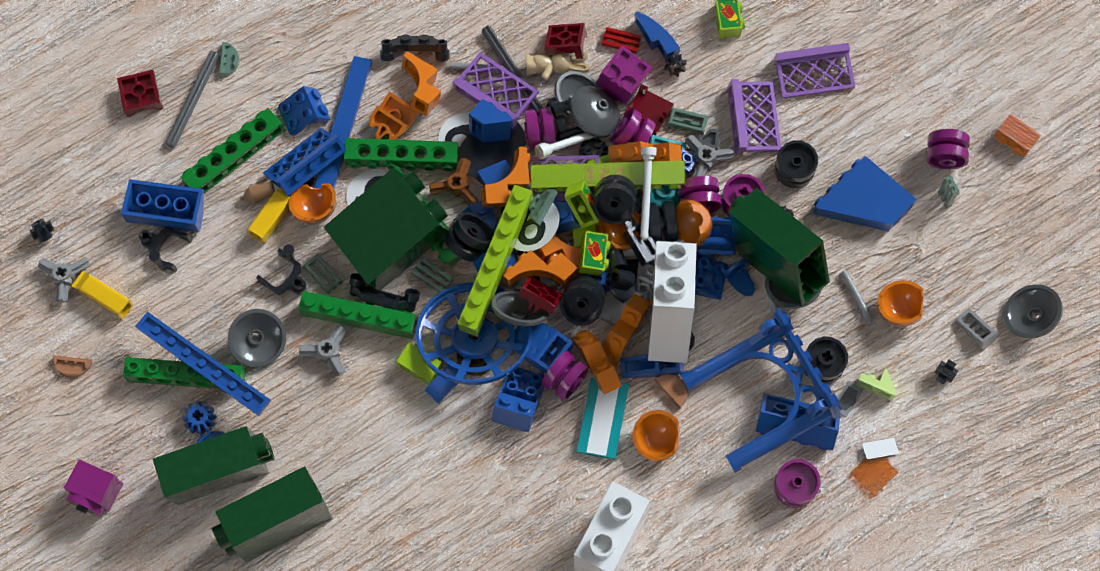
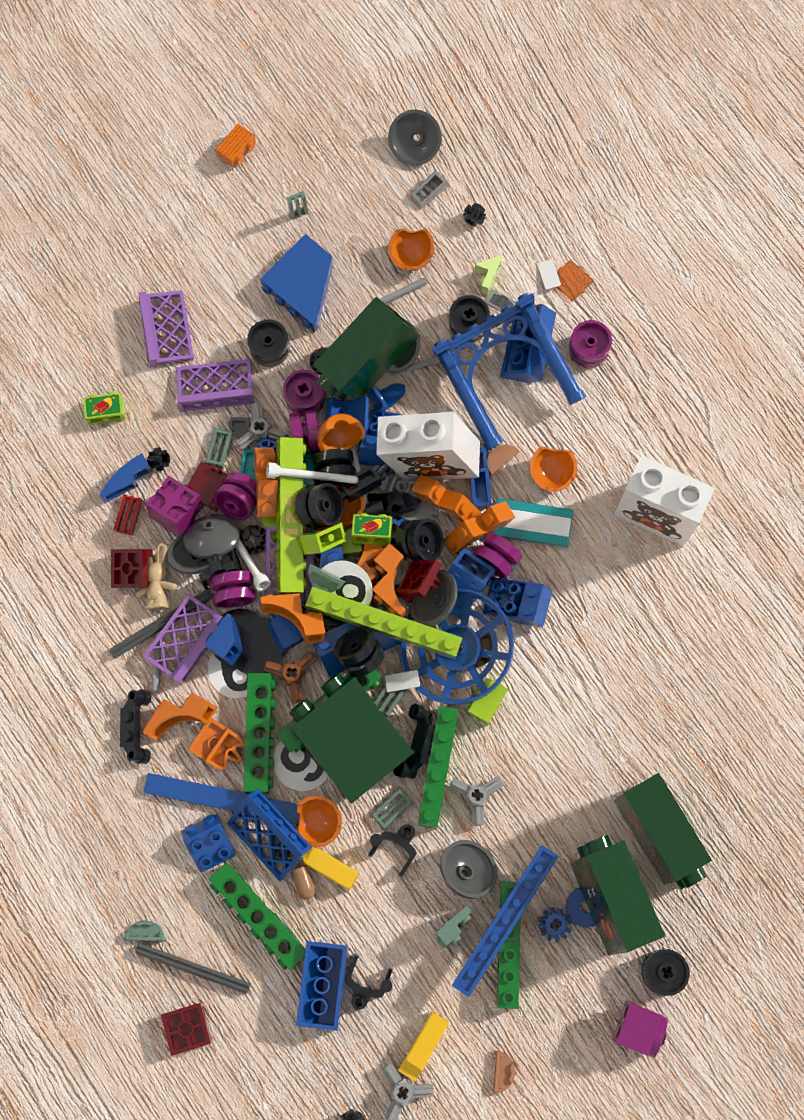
camera: 90 degrees left, 5 degrees up
(132, 519) = (677, 974): none -> black wheel
(201, 320) = (450, 931): none -> sand green plate
(440, 387) = (513, 680): blue slope -> none
(444, 285) = (402, 681): none -> white sticker
(948, 149) = (253, 204): magenta wheel -> none

